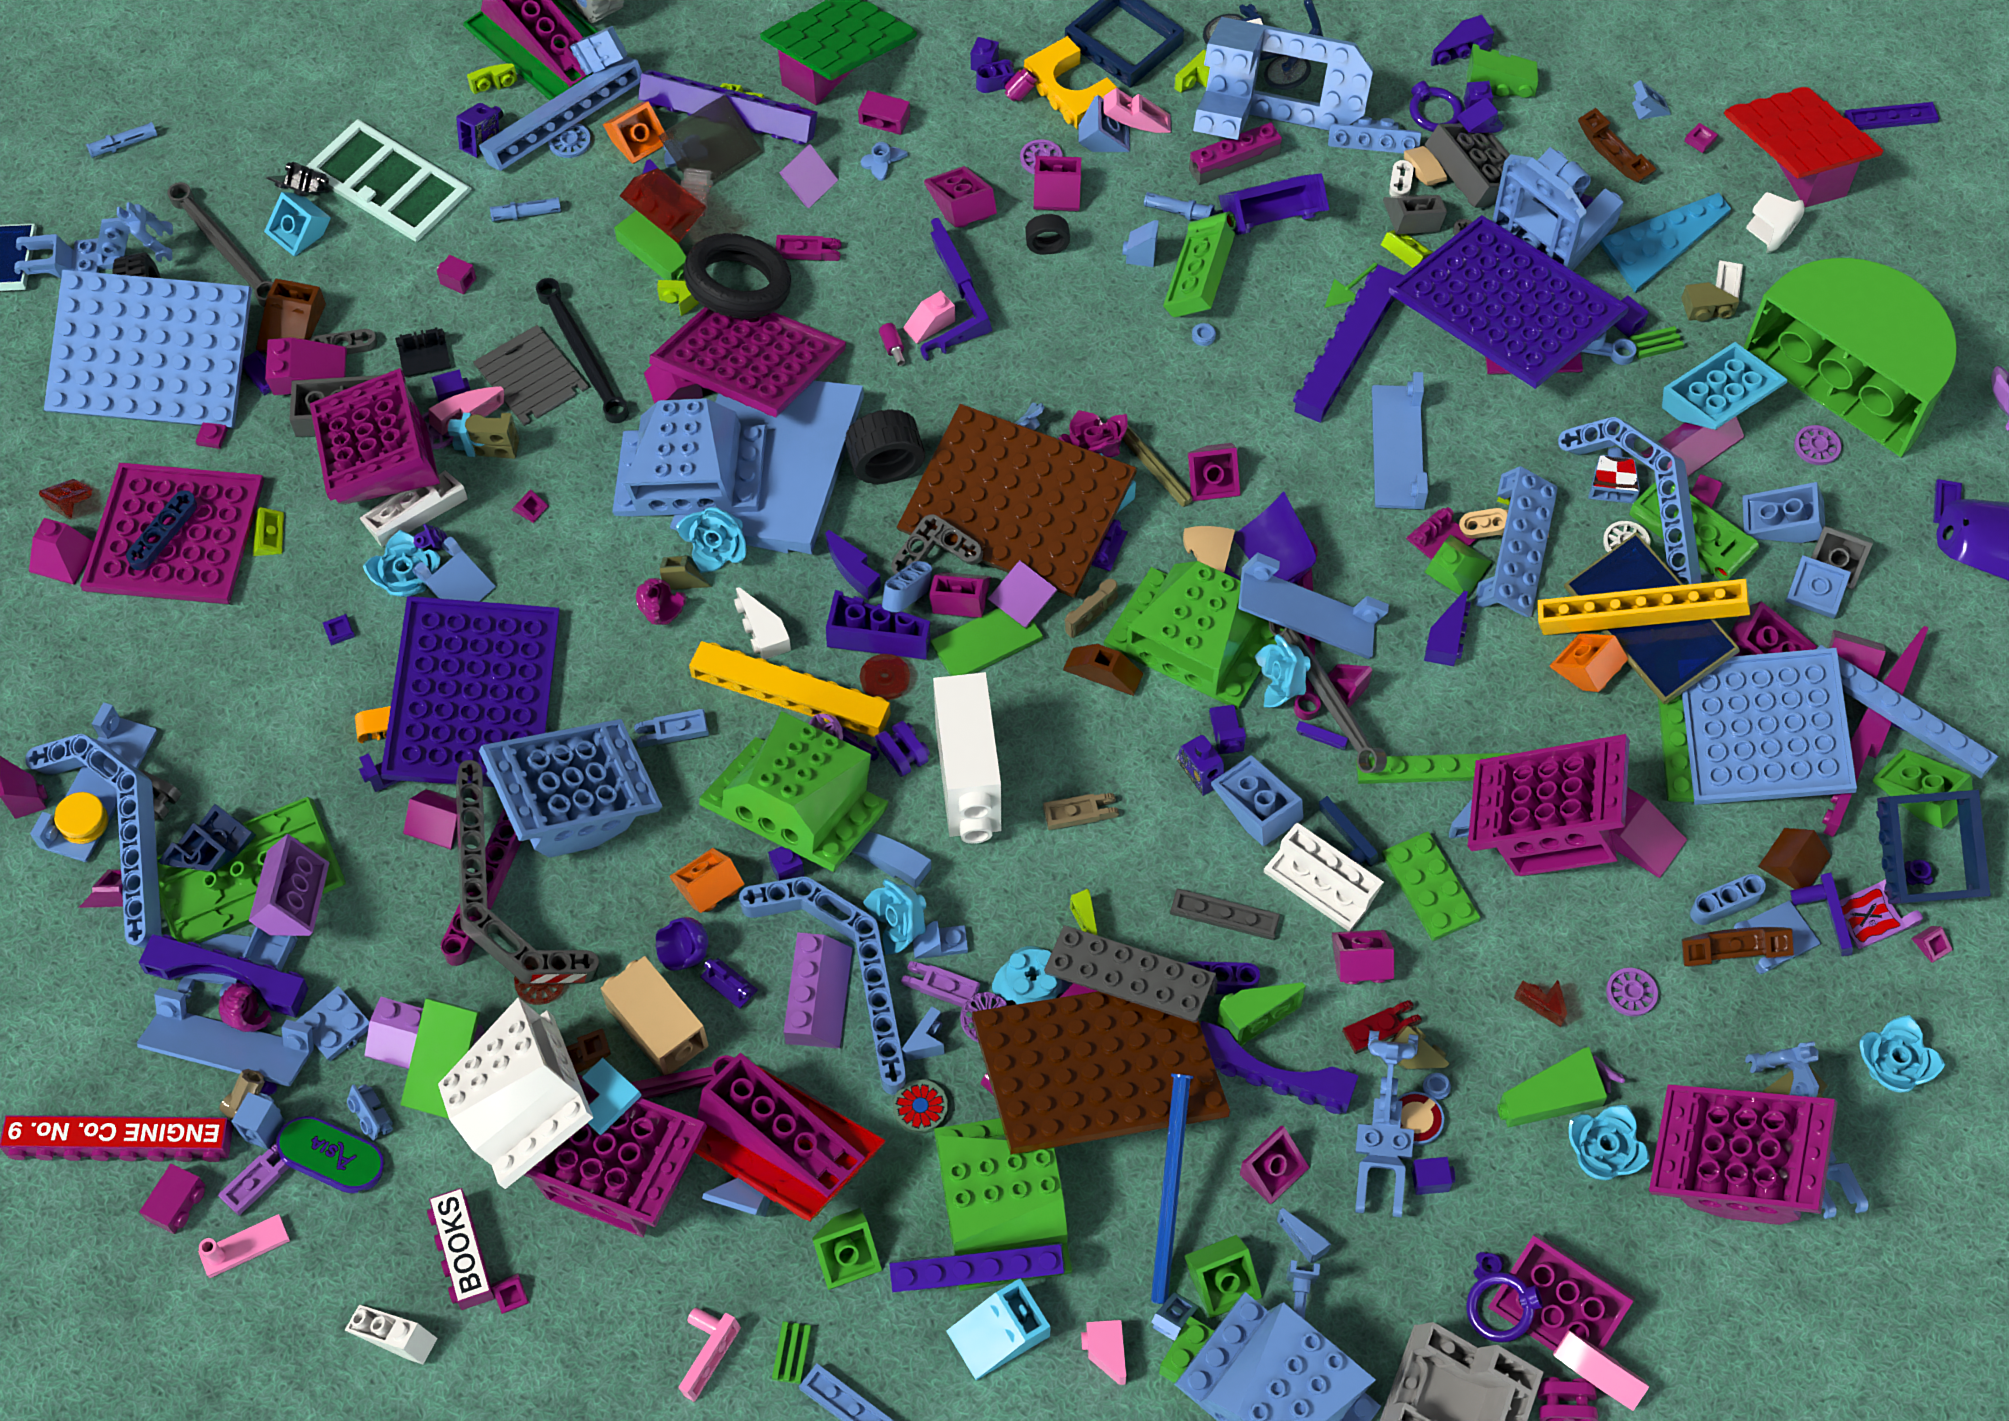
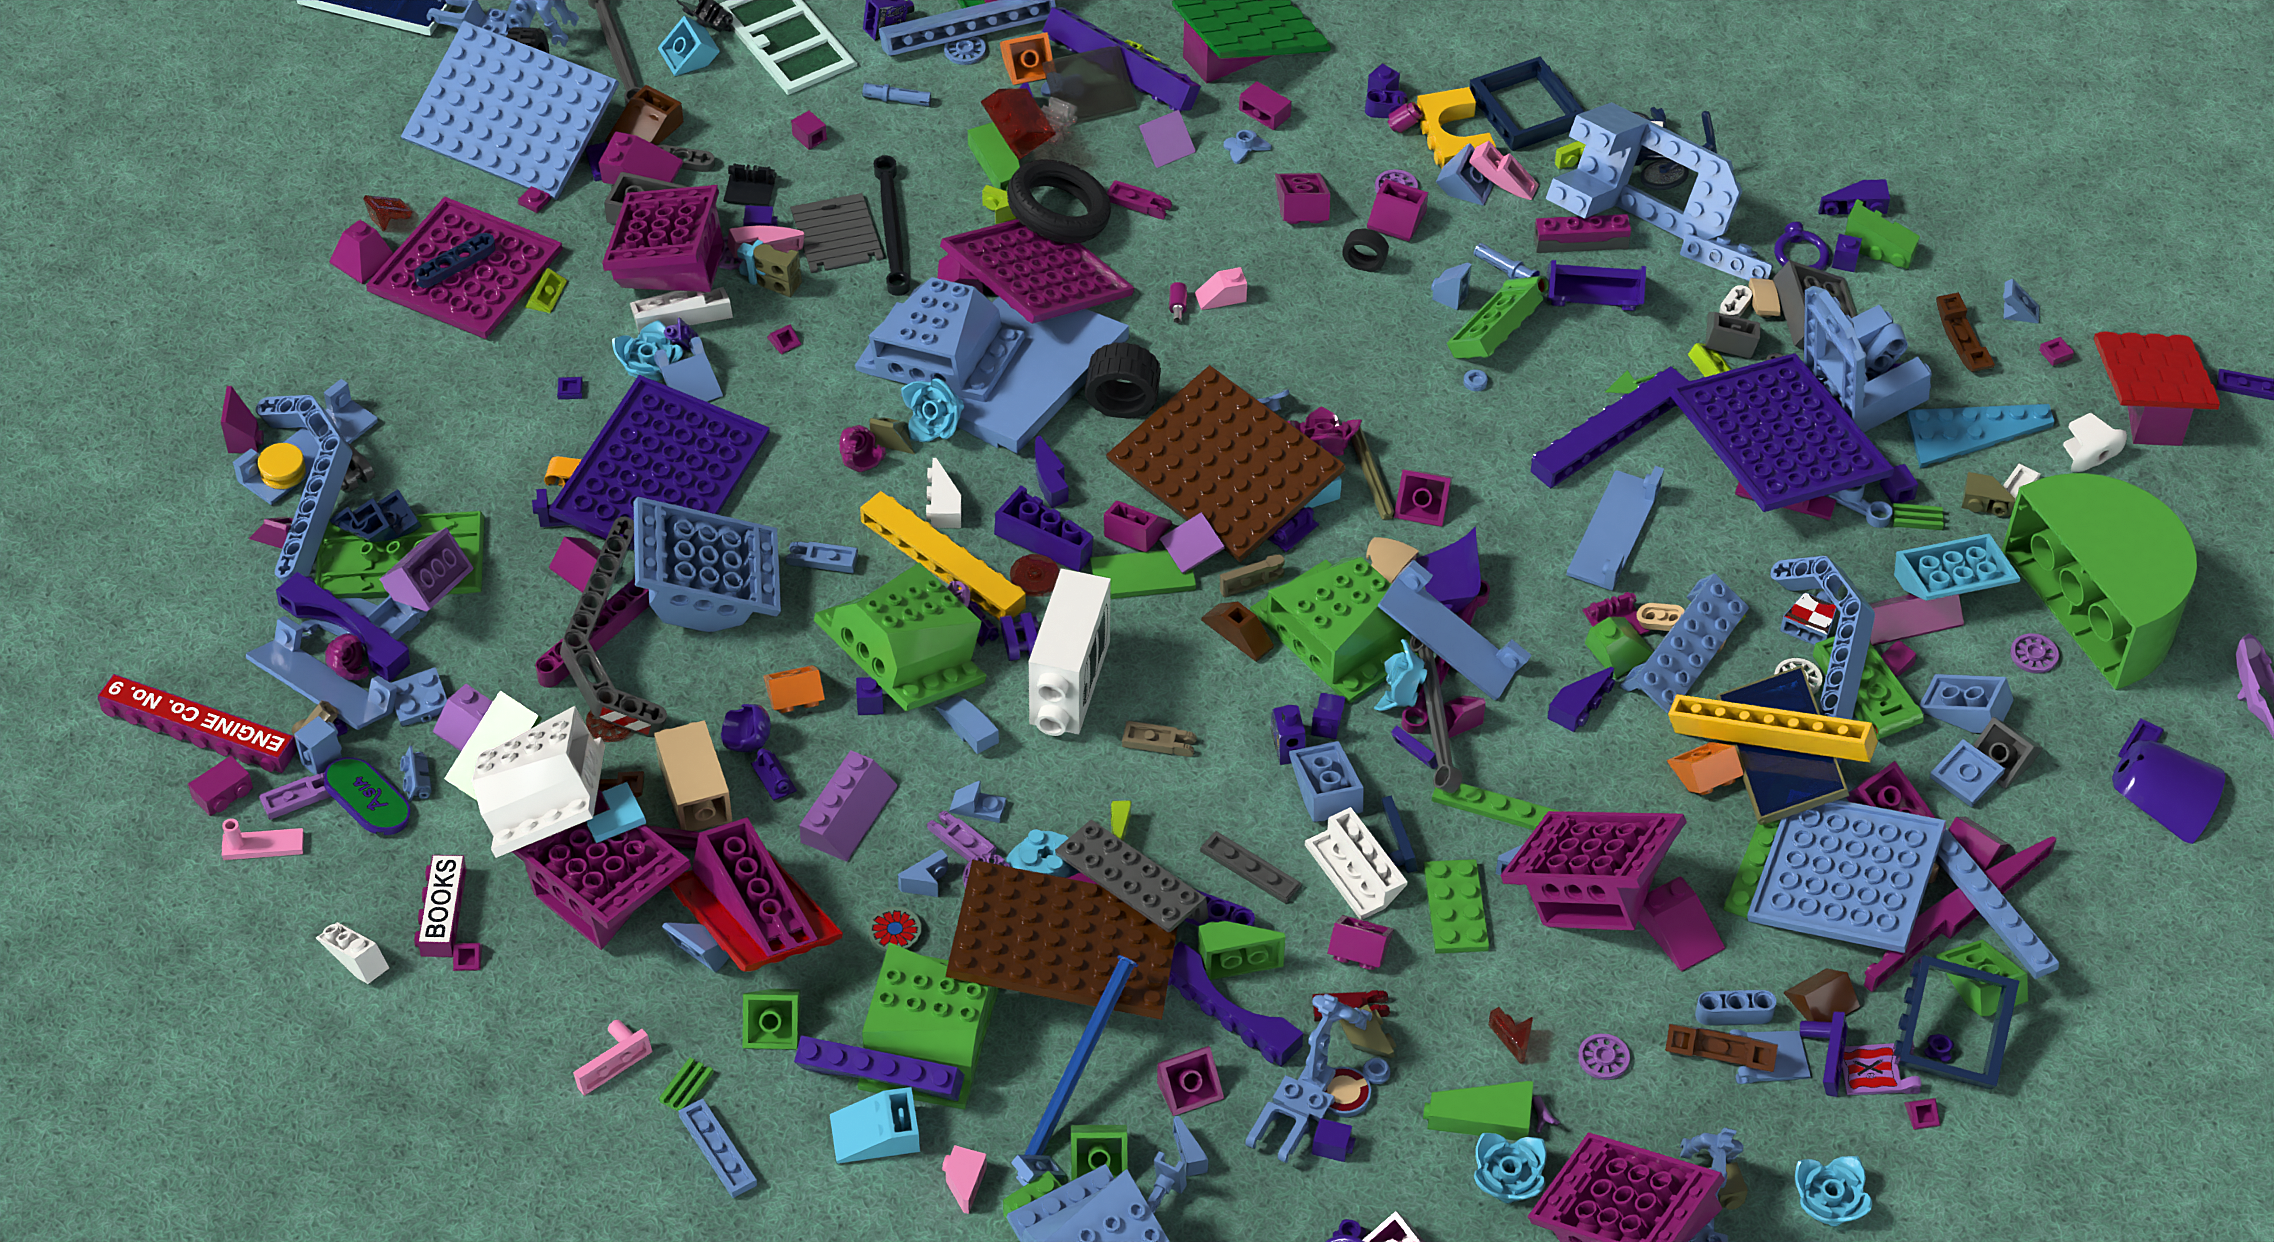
camera: 20 degrees right, 10 degrees down
(864, 943) = (878, 728): medium blue beam -> none
(901, 911) = (950, 761): medium azure brick -> none
(906, 586) = (1086, 502): medium blue beam -> none
(936, 537) = (1135, 471): dark grey beam -> none
(962, 281) = (1256, 309): dark purple hinge -> none
(1481, 118) = (1839, 270): dark purple slope -> none

